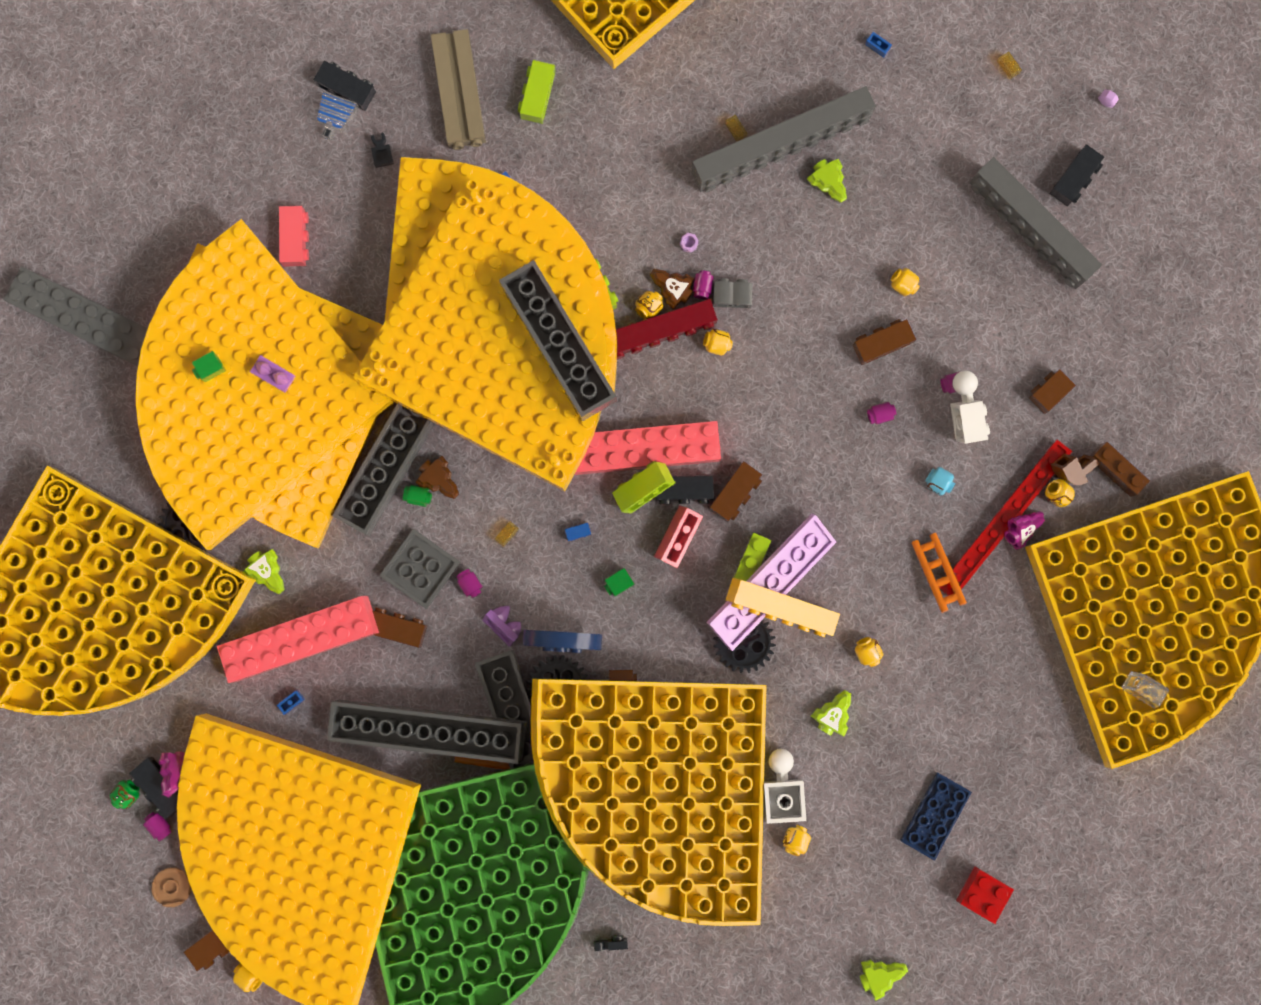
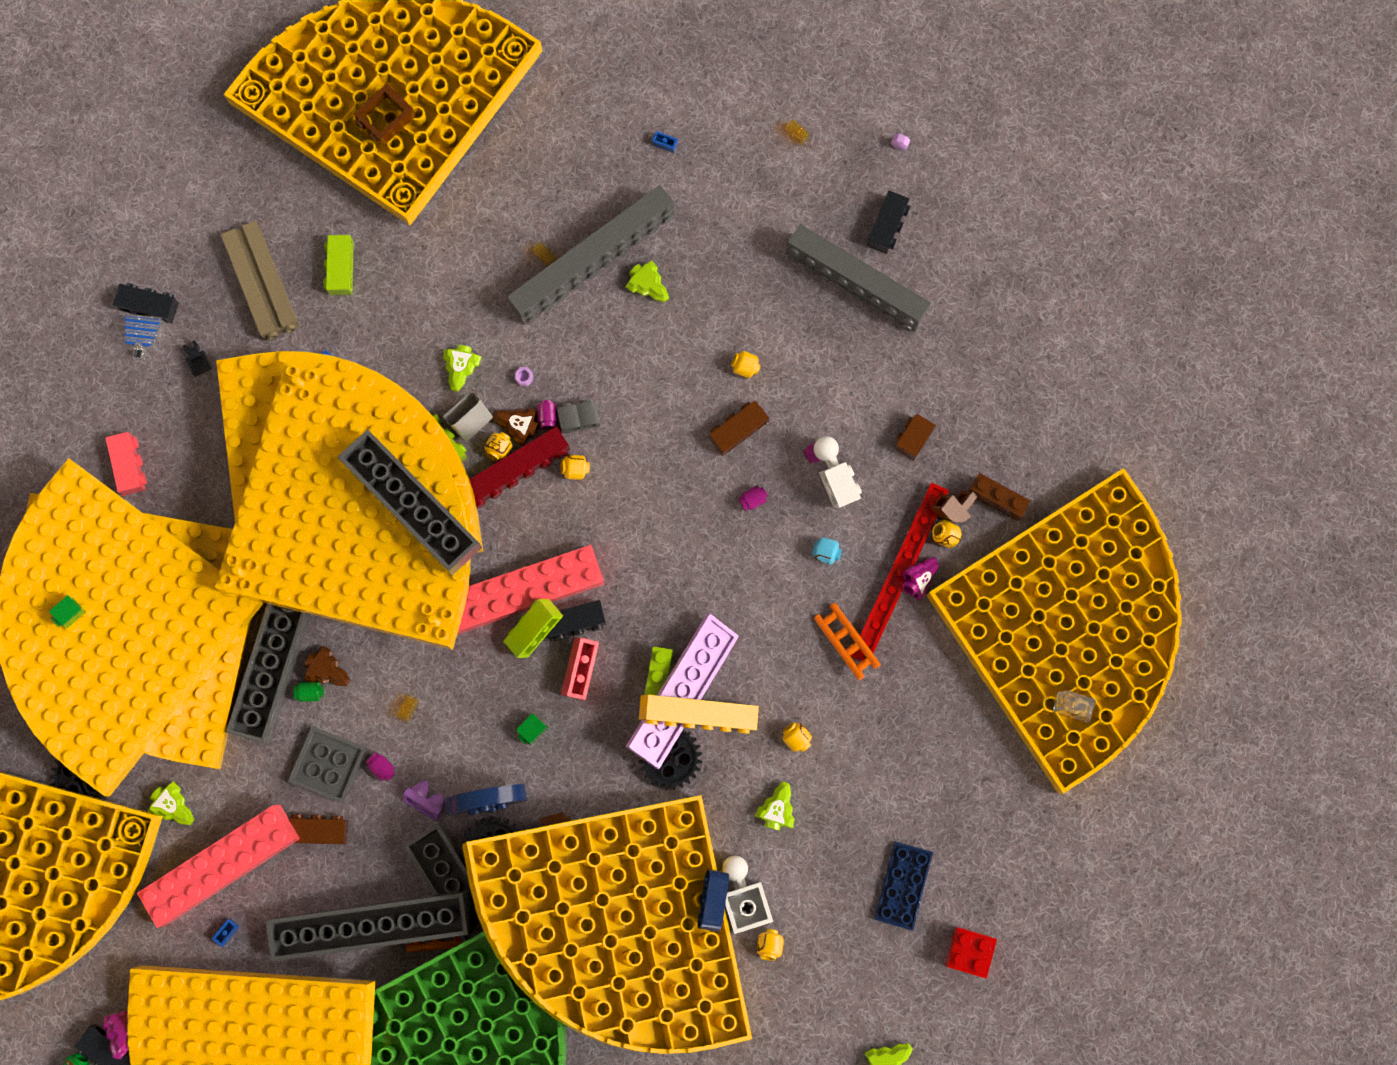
camera: 15 degrees left, 5 degrees down
(272, 374) = (133, 603): medium lavender tile -> none
(578, 532) = (479, 688): blue piece -> none
(627, 268) = (468, 416): none -> light grey piece
(630, 216) = (460, 364): none -> lime rock
(736, 492) = (627, 611): reddish brown brick -> none
(755, 788) = (713, 900): none -> dark blue beam

